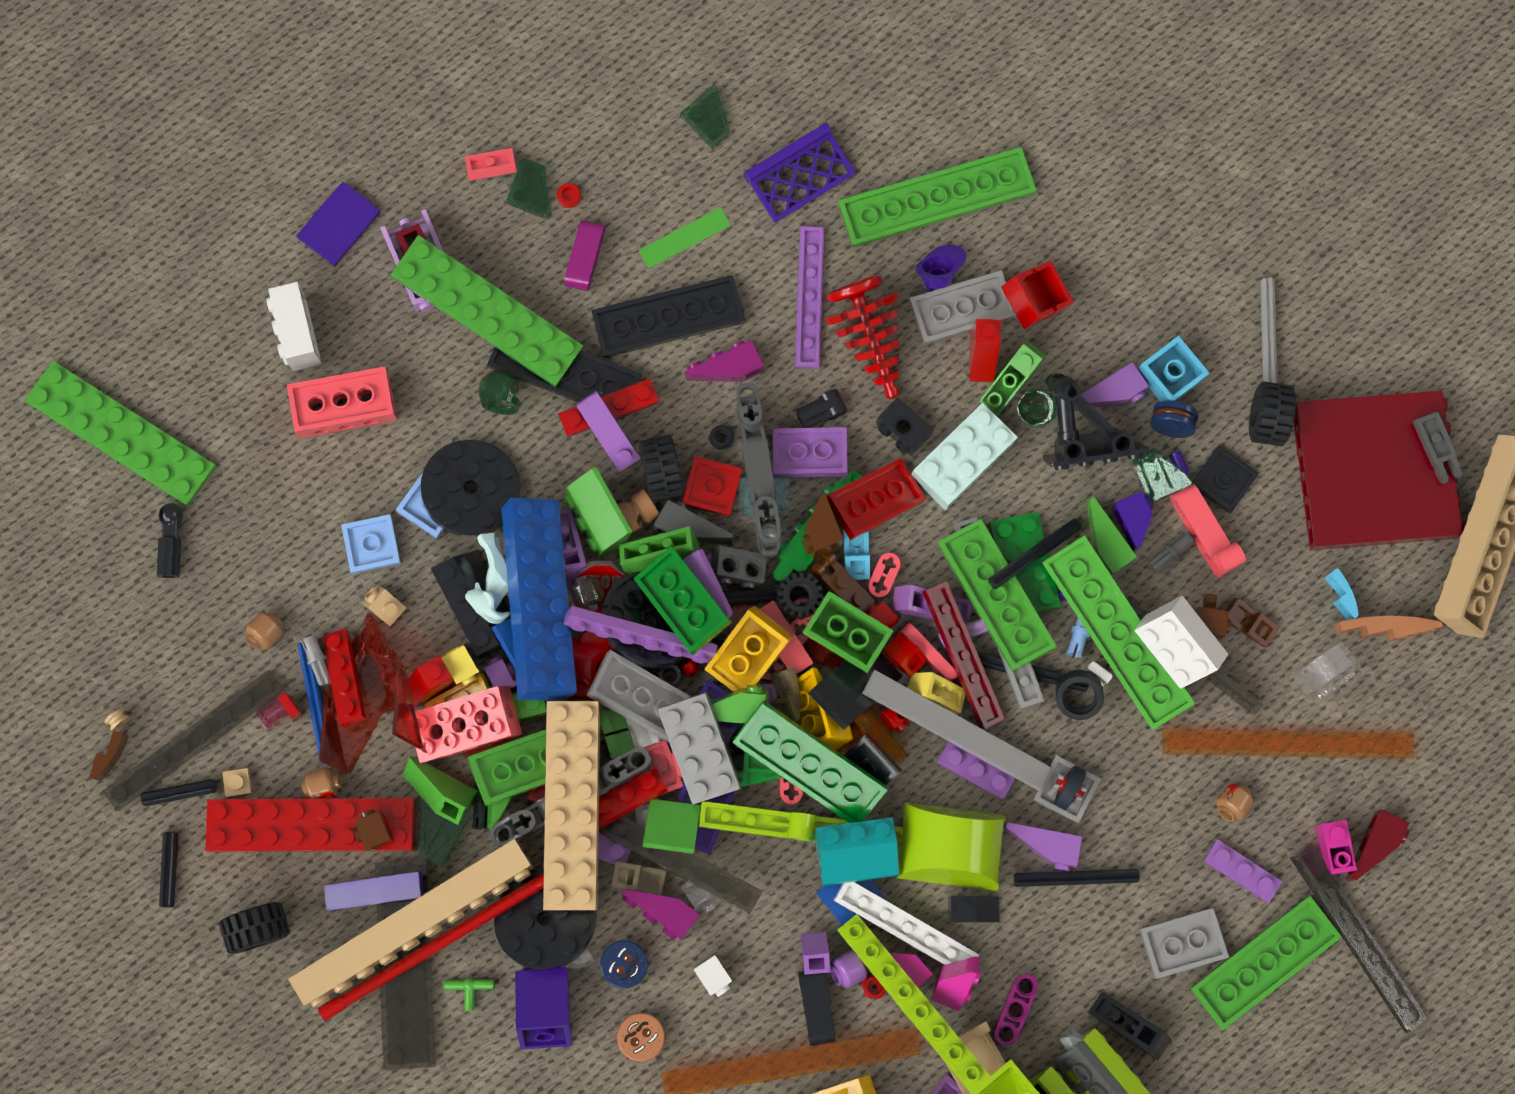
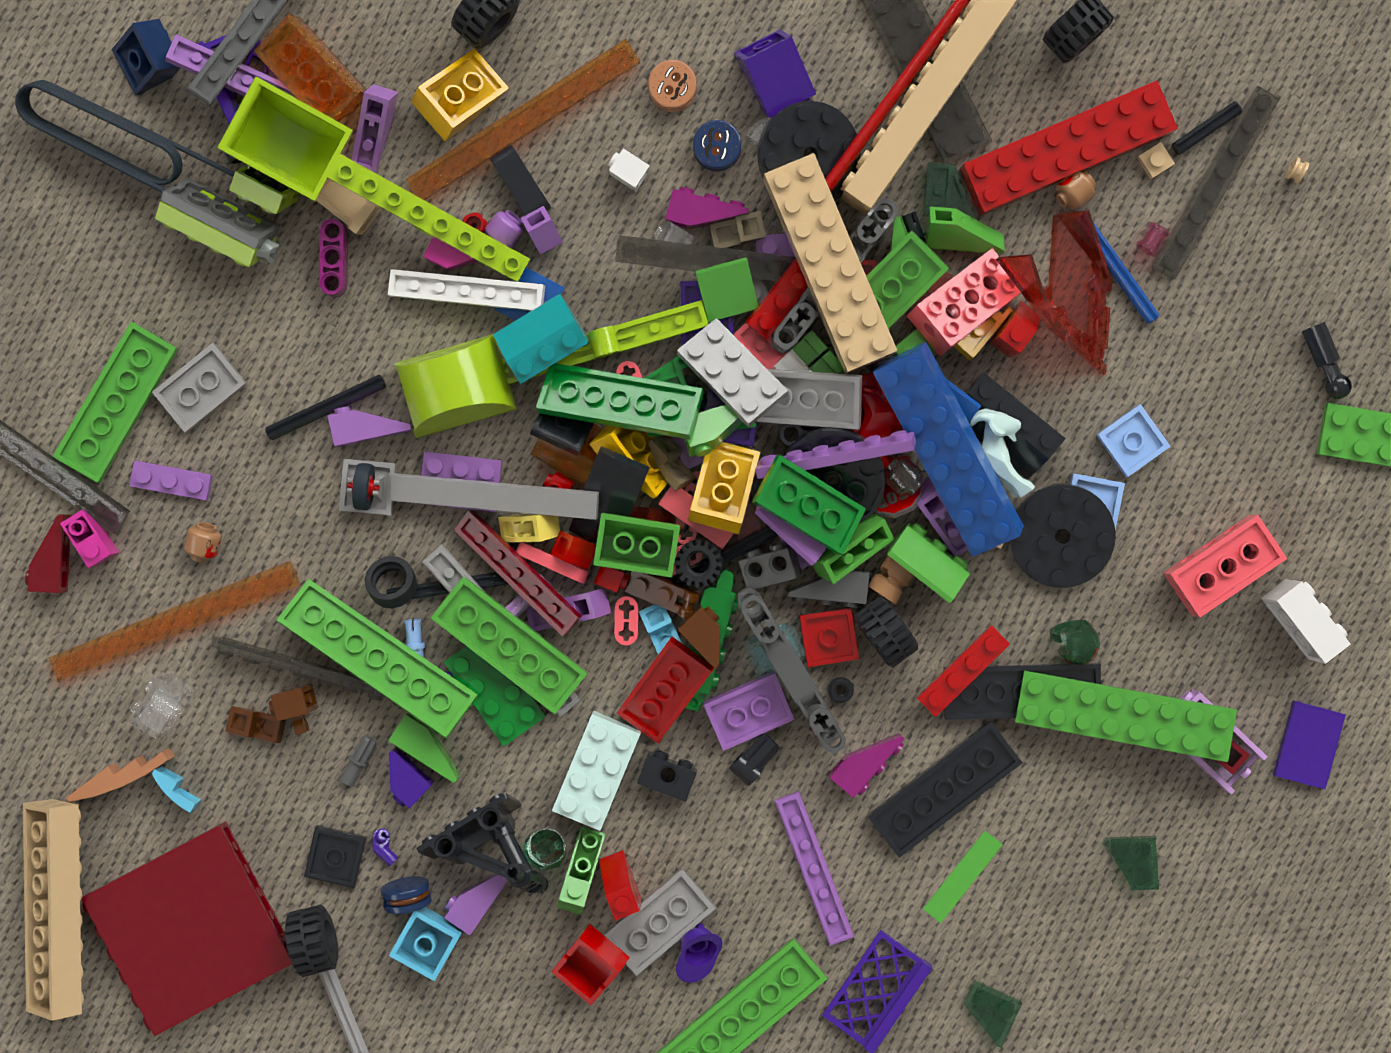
camera: 165 degrees right, 10 degrees up
(104, 763) = (1290, 124): reddish brown slope -> none
(168, 869) = (1183, 53): black axle -> none
(264, 631) = (1197, 313): medium nougat head -> none
(290, 706) = (1139, 252): red tile -> none
(316, 659) = (1134, 305): light grey axle -> none
(344, 678) = (1100, 299): red plate -> none
(372, 830) = (1008, 162): reddish brown brick -> none
(374, 891) = (980, 112): tile -> none
(383, 604) = (1094, 387): tan bracket -> none
(460, 665) = (996, 358): light yellow arch -> none
(469, 986) = (852, 65): bright green piece -> none
(490, 164) = (1187, 869): coral plate -> none
(501, 674) = (953, 366): medium lavender brick -> none
(569, 195) = (1095, 871): red tile -> none
(584, 255) = (1053, 815): magenta beam -> none
(608, 431) = (953, 645): medium lavender slope -> none
(688, 667) = (776, 449): red hinge -> none
(871, 336) = (742, 859): red plant -> none
(954, 983) = (398, 258): dark pink slope -> none
(973, 909) = (410, 335): black slope -> none
(1034, 553) = (488, 701): black axle -> none
(1102, 674) = (380, 612): white tile -> none
(1130, 1026) = (220, 288): black slope -> none
(1160, 476) = (397, 832): clear green wing -> none
(1181, 642) = (310, 671): white brick -> none
(1206, 532) = (331, 795): coral beam -> none
(1438, 446) = (136, 976): dark grey hinge -> none

